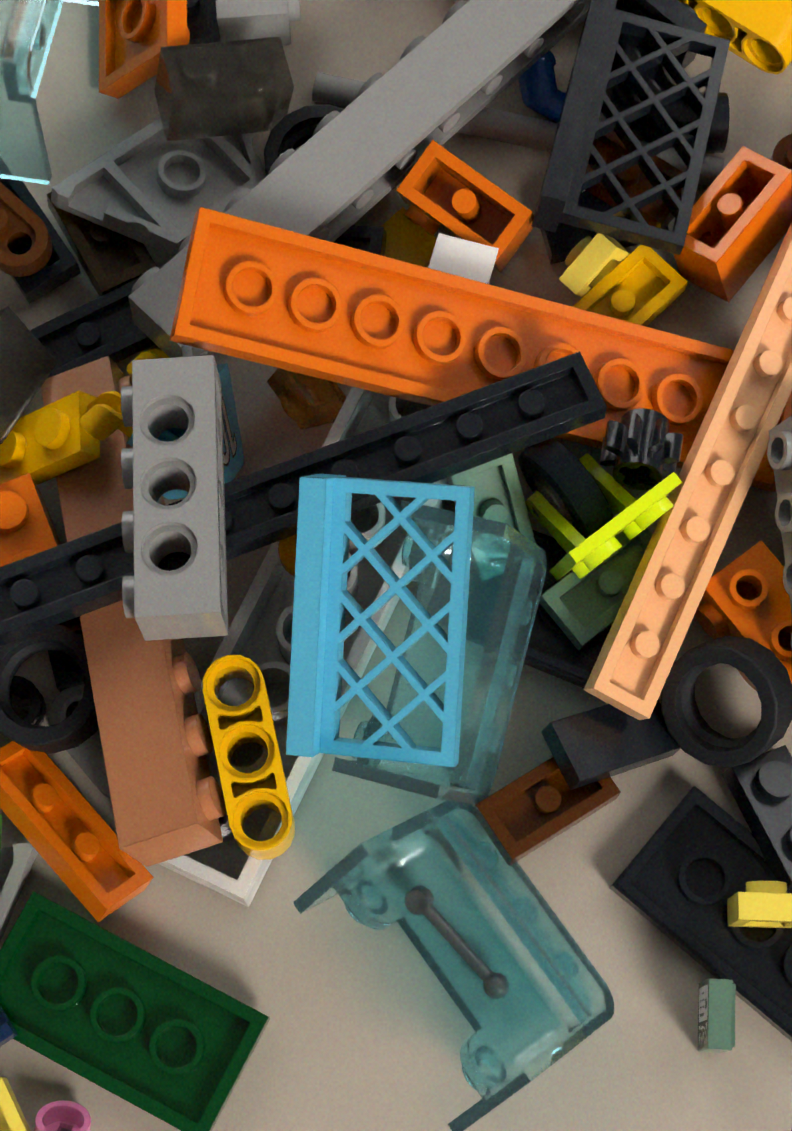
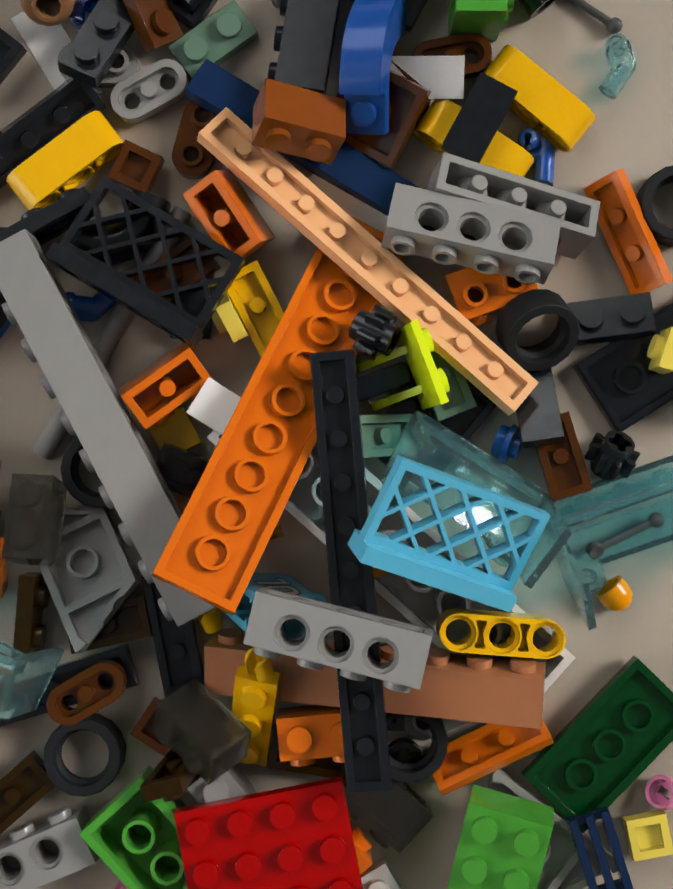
camera: 70 degrees left, 15 degrees up
(90, 126) = (31, 599): none -> dark brown plate
(357, 957) = (615, 594): none -> light orange hinge
(535, 711) = (506, 443): none -> blue plate
(575, 879) = (612, 455): none -> black gear
(758, 93) = (136, 167): none -> reddish brown plate

